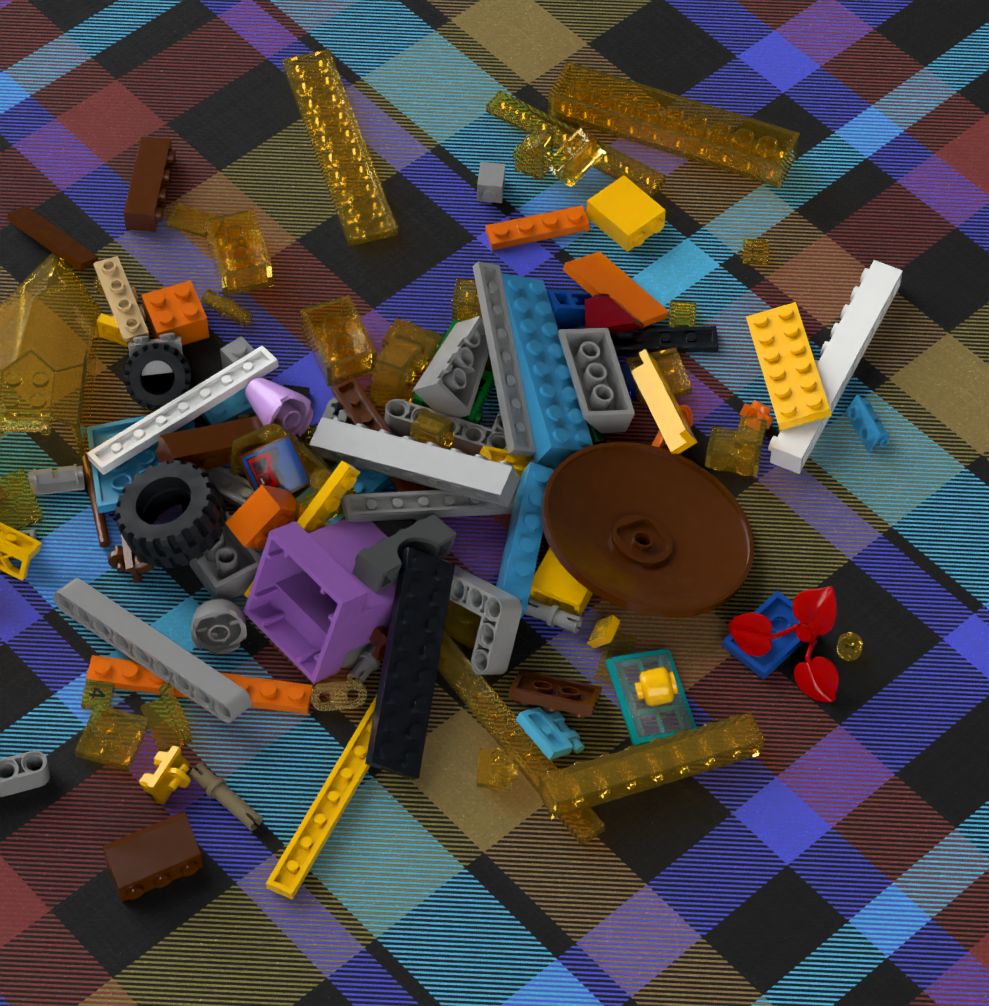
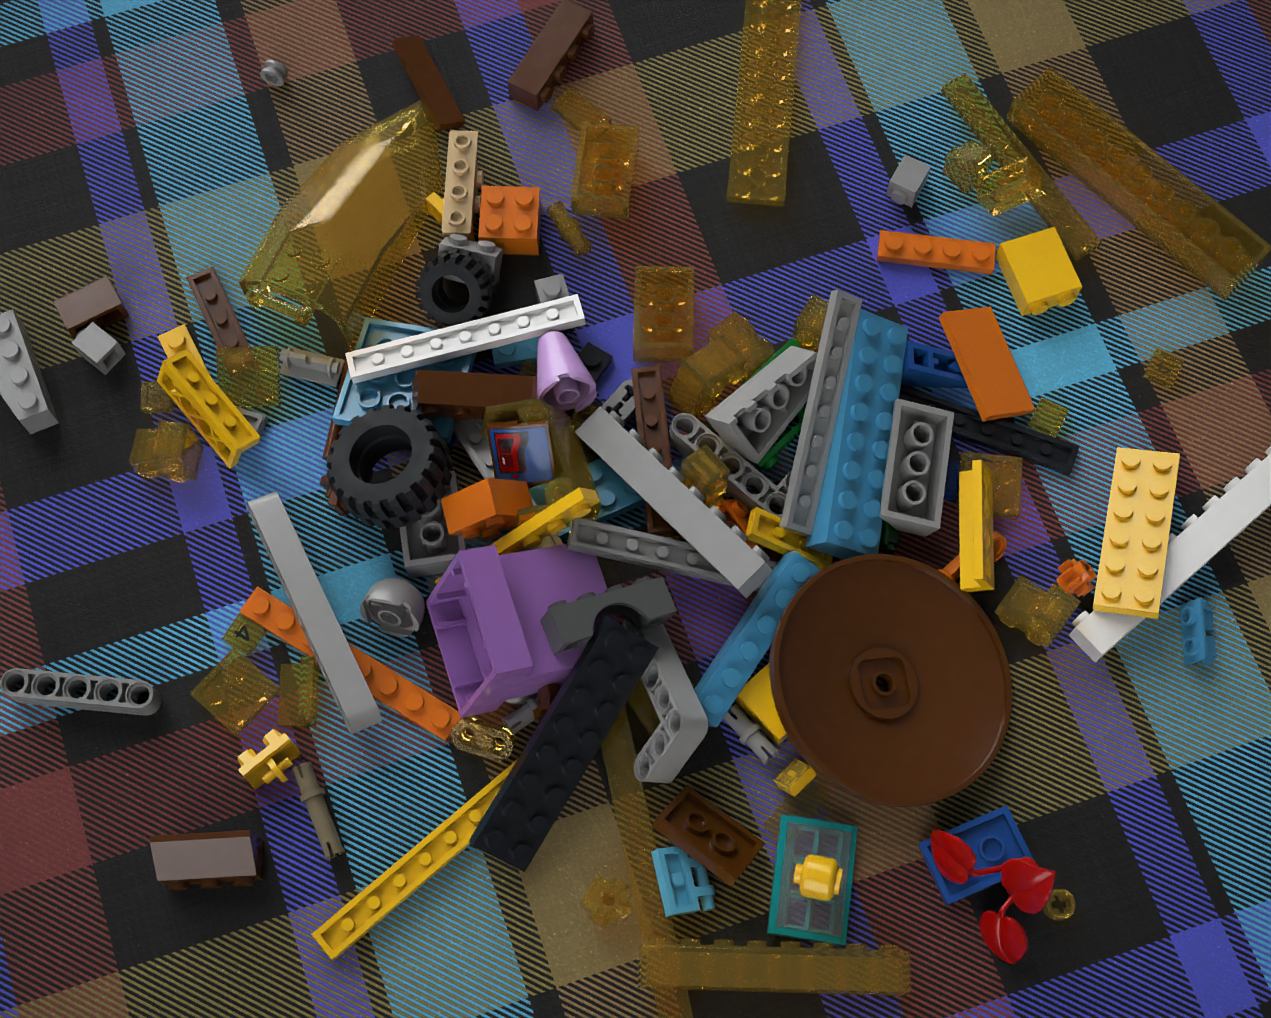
camera: 25 degrees right, 15 degrees up
(608, 313) = (963, 396): dark red slope -> none

